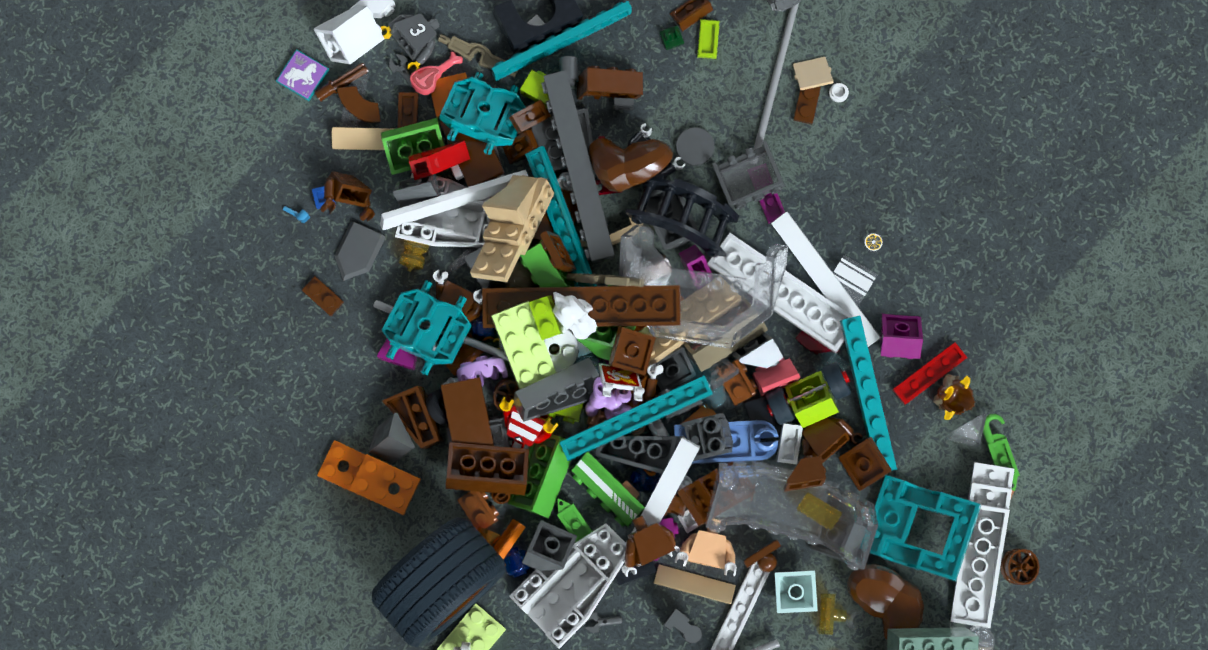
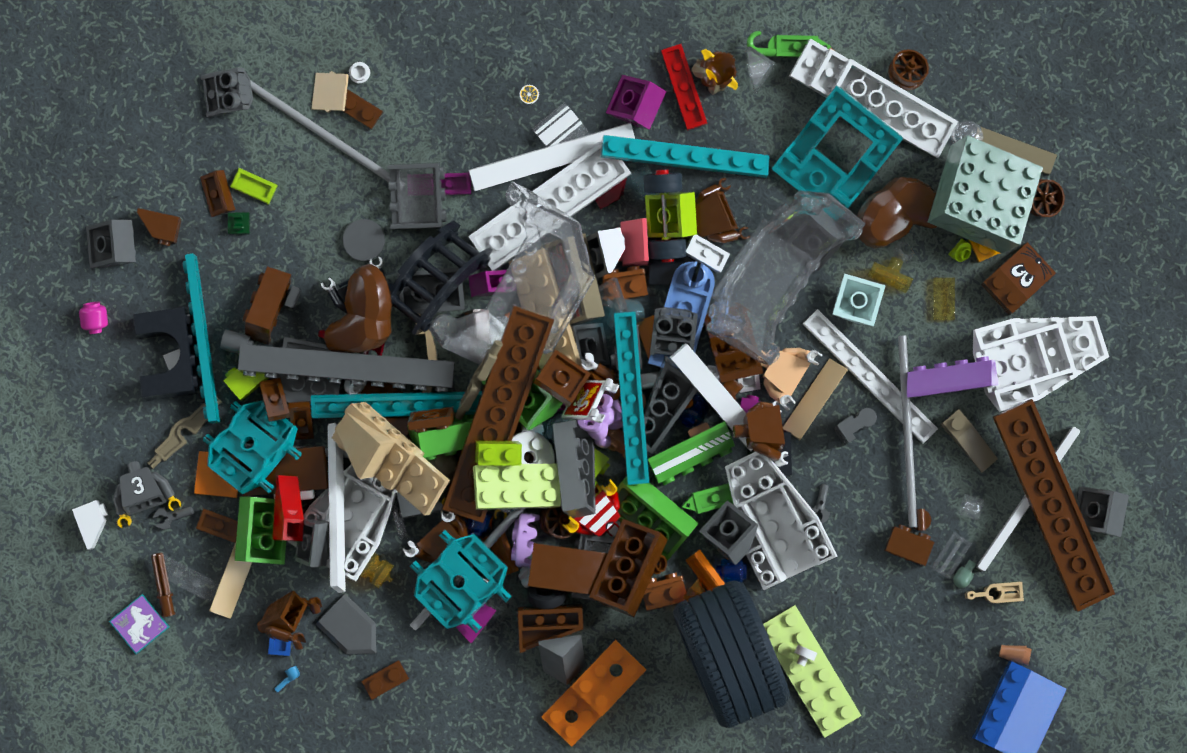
camera: 80 degrees left, 5 degrees up
(349, 34) = (116, 559): white slope -> none
(357, 106) = (196, 575): reddish brown tile -> none
(425, 78) = (190, 495): coral piece -> none
(573, 315) = (507, 424): white head -> none
(765, 560) = (813, 319): reddish brown tile -> none
(806, 474) = (745, 246): reddish brown slope -> none
(819, 511) = (787, 247): clear yellow tile -> none
(865, 464) = (754, 185): reddish brown plate -> none

